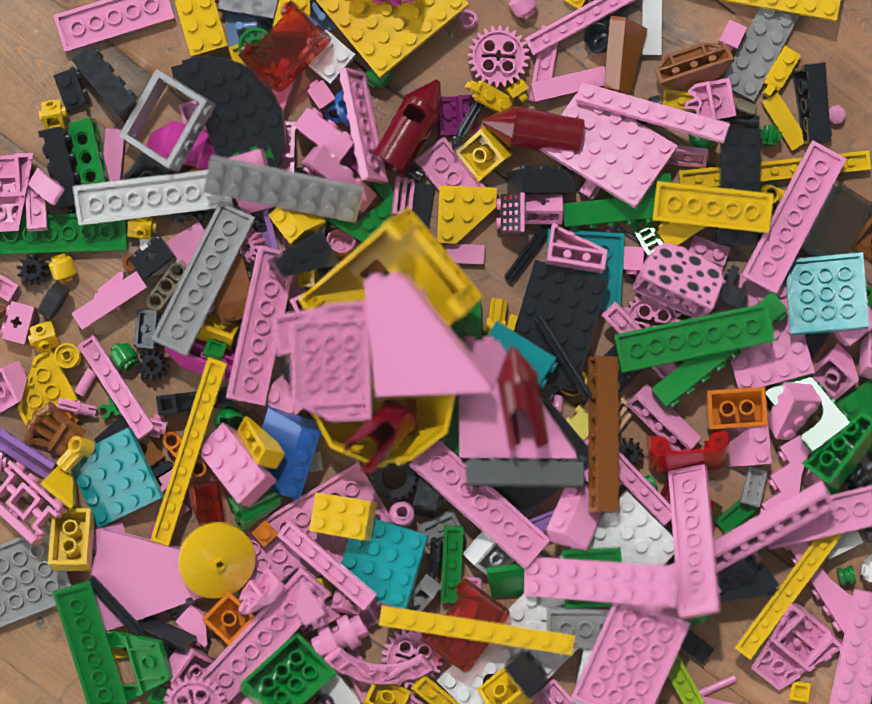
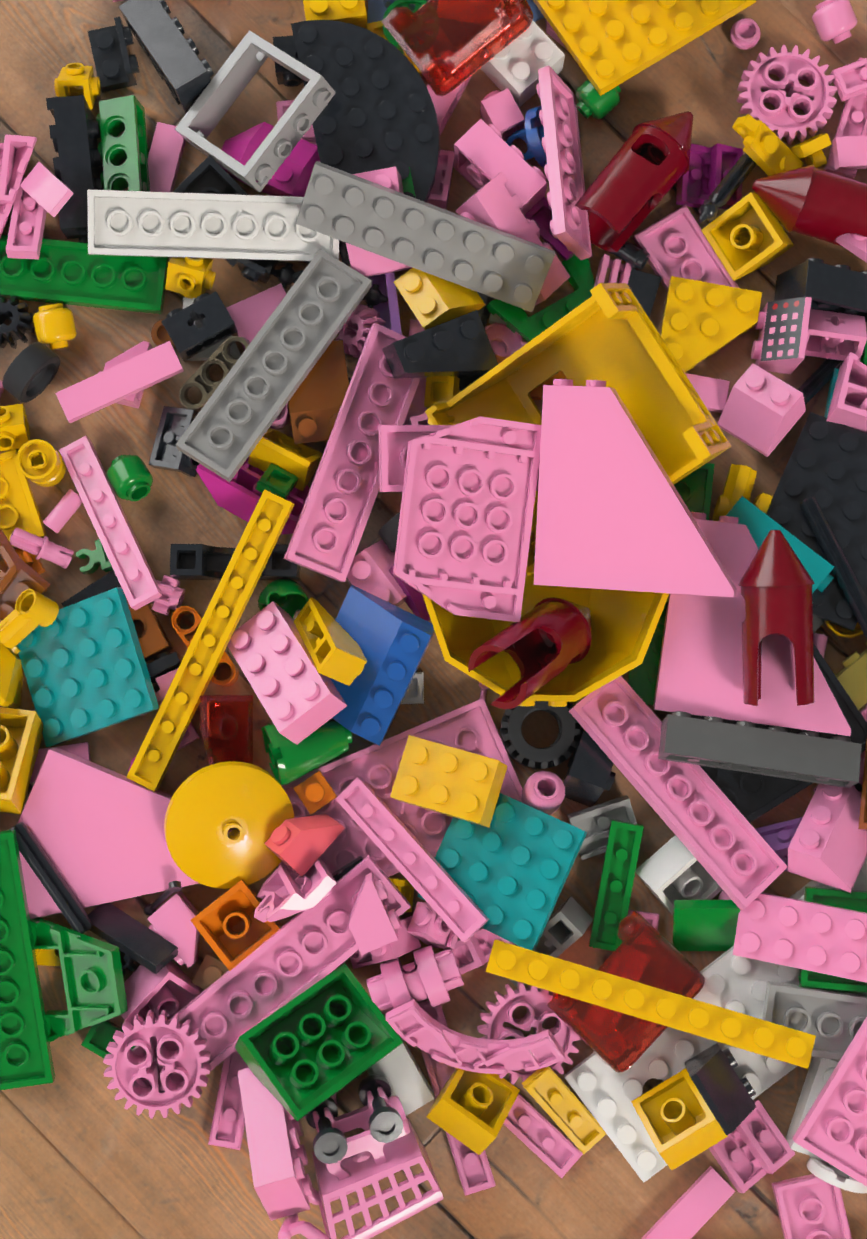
camera: 10 degrees right, 5 degrees down
(148, 370) = (164, 504): black gear -> none
(261, 563) = (303, 840): none -> coral slope
(435, 557) = (589, 870): black pin -> none
(504, 262) = (761, 410): none -> bright pink slope

